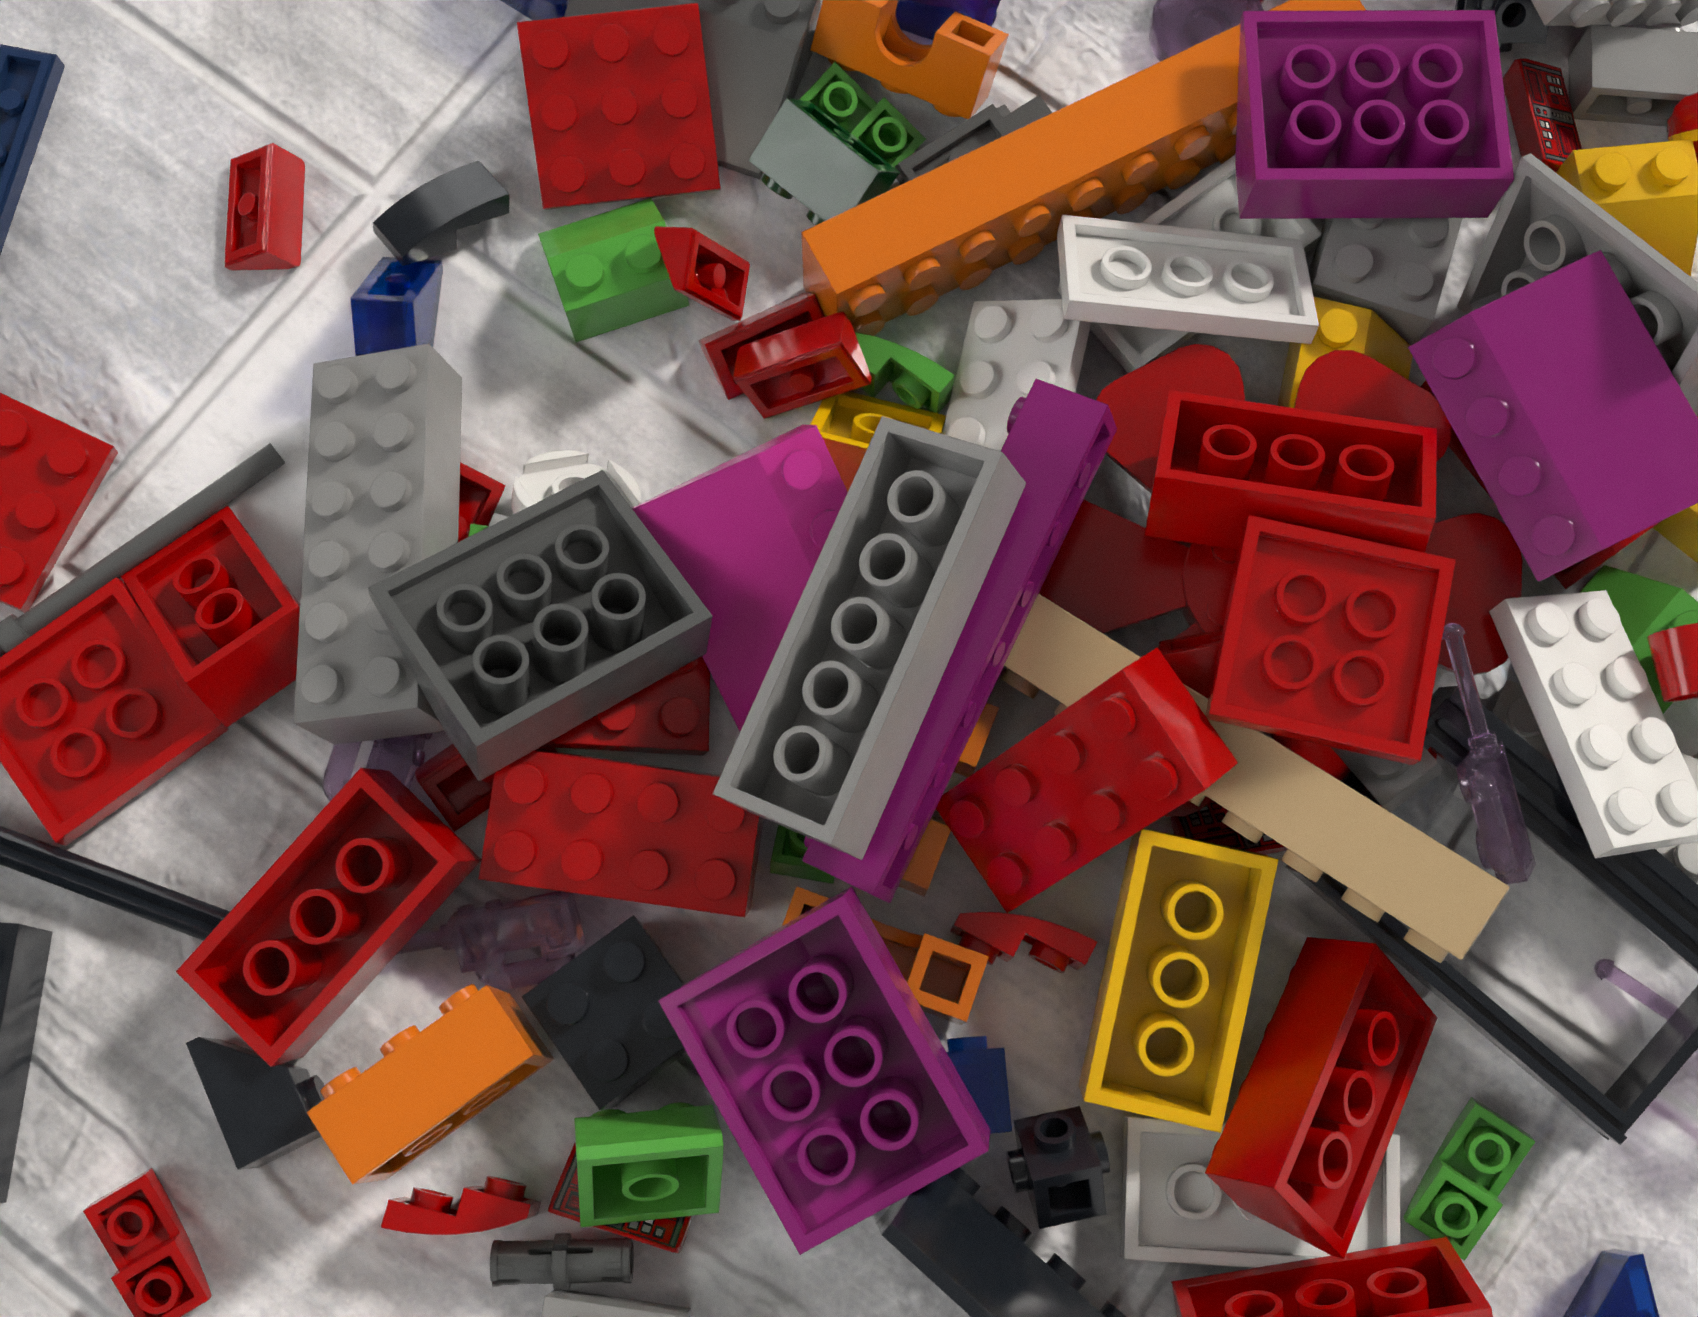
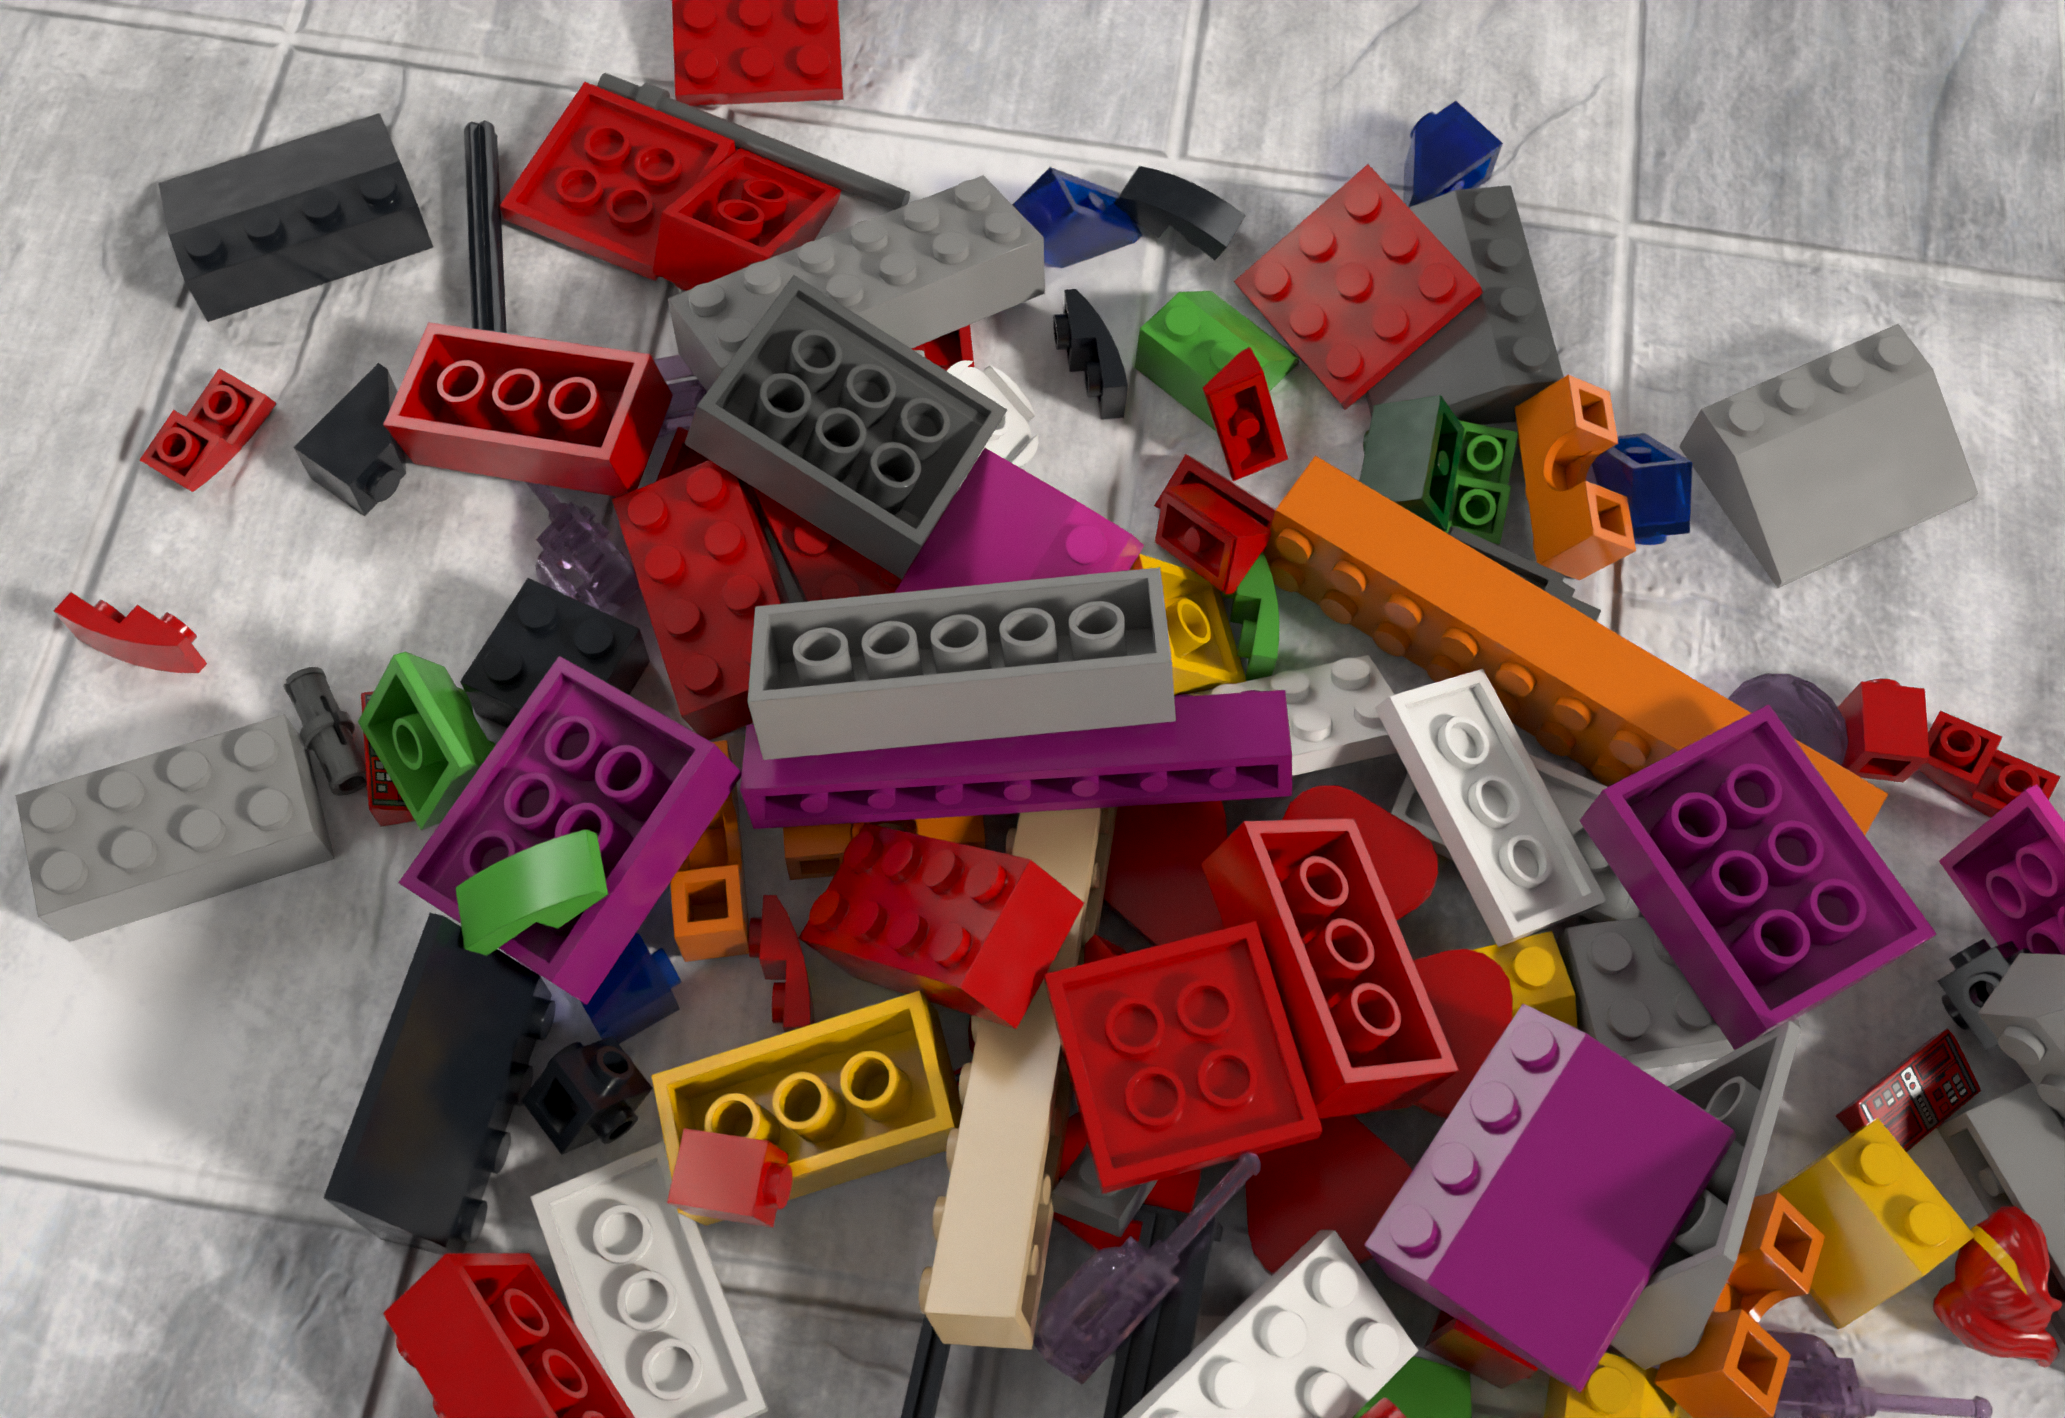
camera: 60 degrees right, 10 degrees down
(265, 210) = (1106, 94): red slope -> none
(428, 1083) = (421, 546): orange brick -> none
(479, 1209) = (326, 614): red slope -> none
(535, 366) = (1092, 351): none -> black slope
(902, 1130) = (535, 885): none -> bright green slope
(1234, 1071) = (730, 1178): none -> red brick
(1324, 1093) = (768, 1308): red slope -> none

